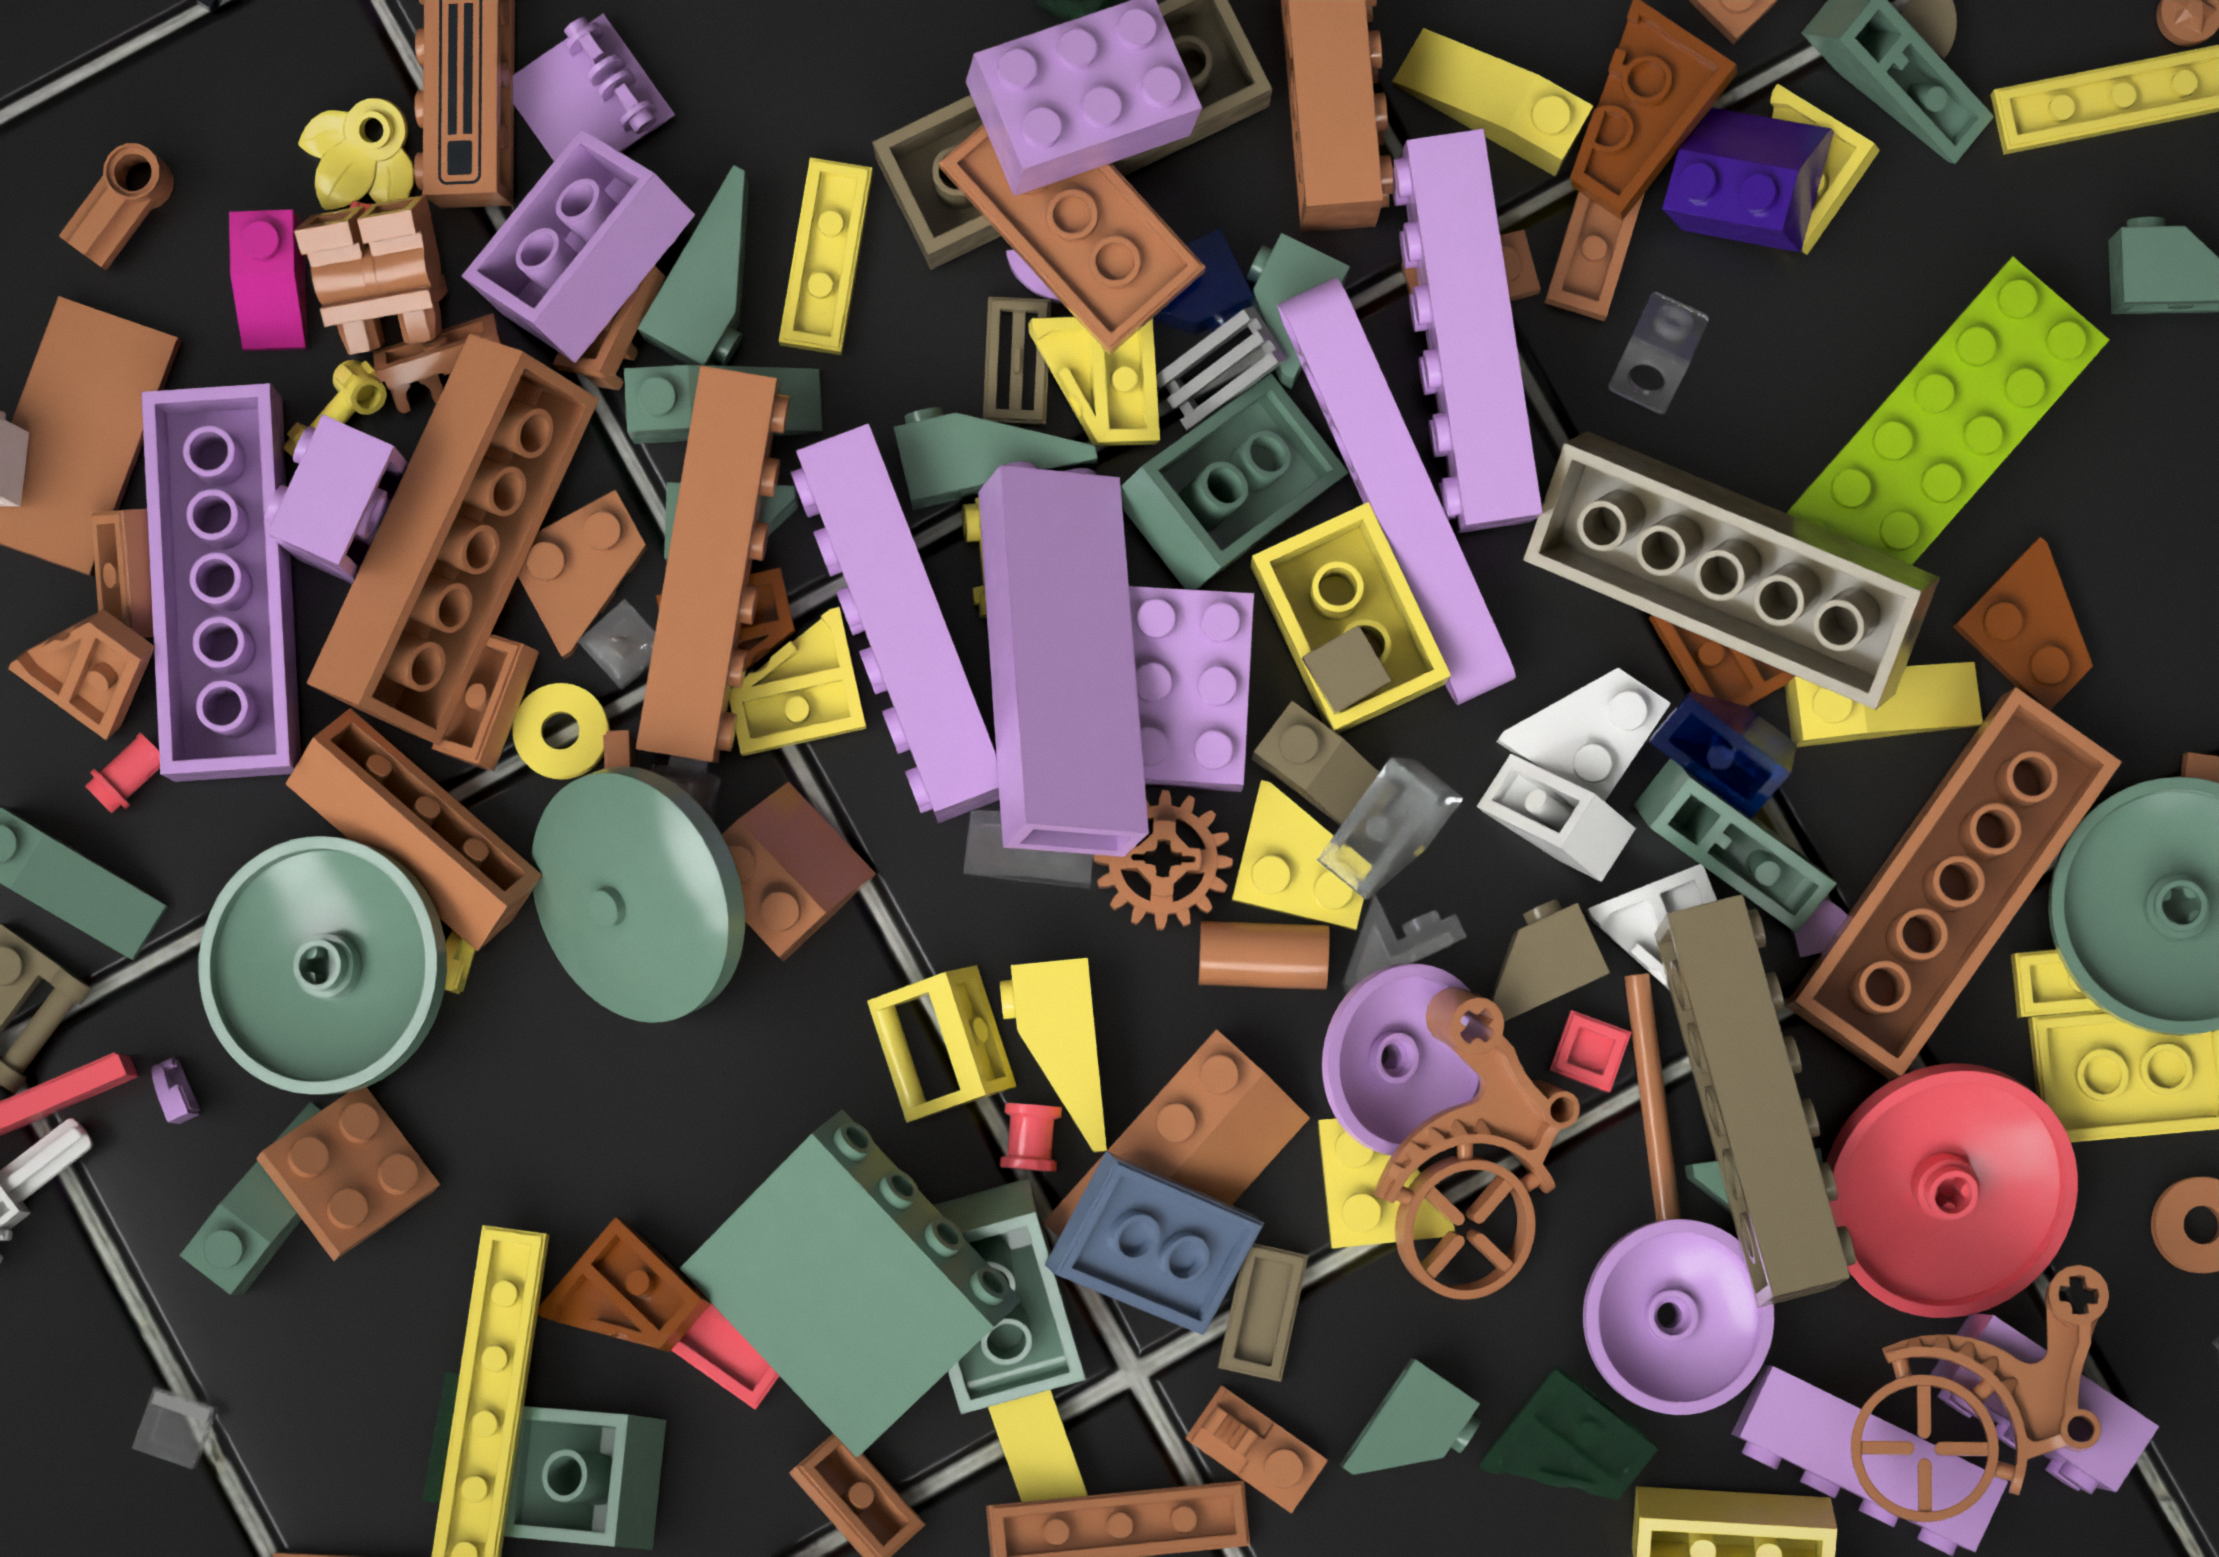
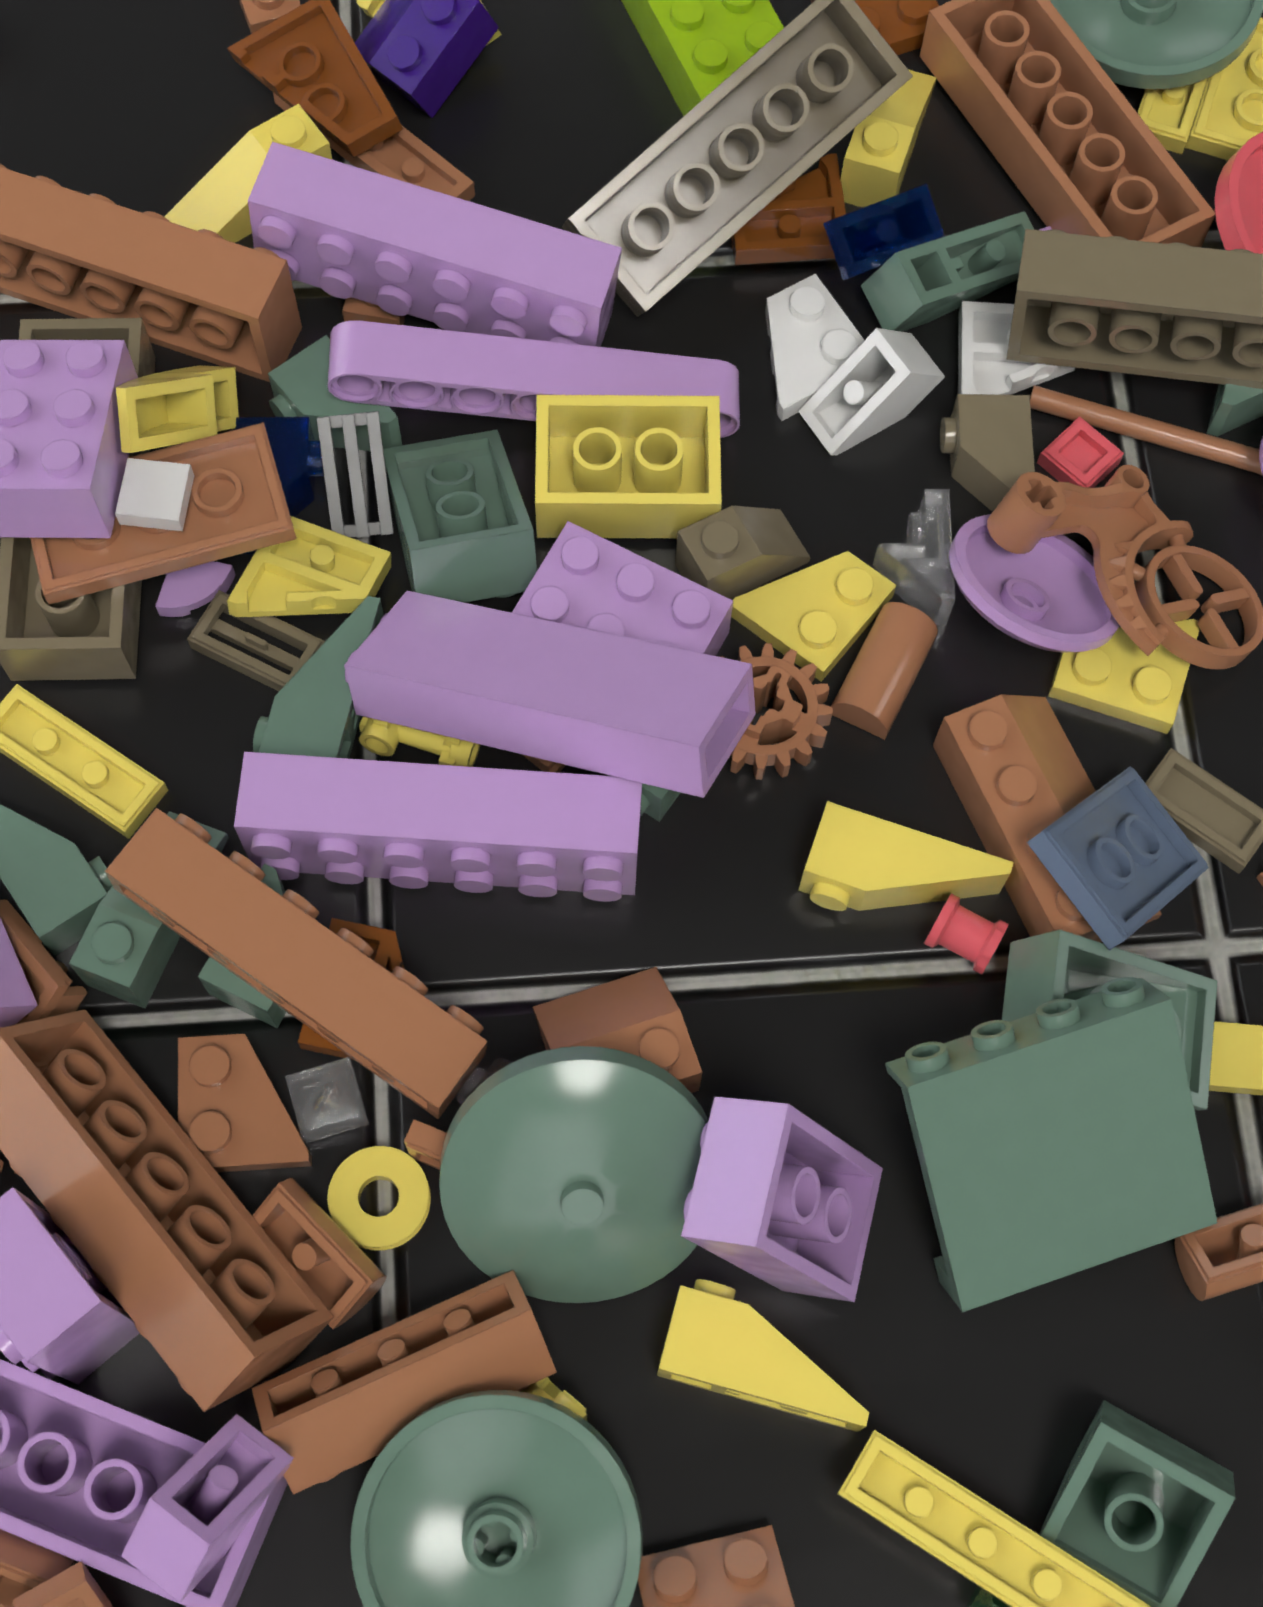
camera: 65 degrees left, 15 degrees down
(235, 725) = (205, 1507): none -> lavender slope
(563, 1098) = (741, 1355): none -> light yellow slope
(626, 1292) = (962, 1380): dark orange wing -> none
(691, 1075) = (782, 1198): none -> lavender brick
(726, 1357) = (1045, 1318): coral tile -> none
(800, 692) = (457, 947): light yellow wing -> none
(968, 1035) = (846, 944): light yellow tile -> none
(989, 859) = (695, 828): clear slope -> none
(1077, 211) = (154, 494): none -> white tile
(1191, 174) = (176, 407): none -> light yellow slope
(1346, 669) = (675, 467): dark tan tile -> none
(1389, 826) = (822, 512): clear slope -> none
(1665, 340) = (515, 151): clear bracket -> none

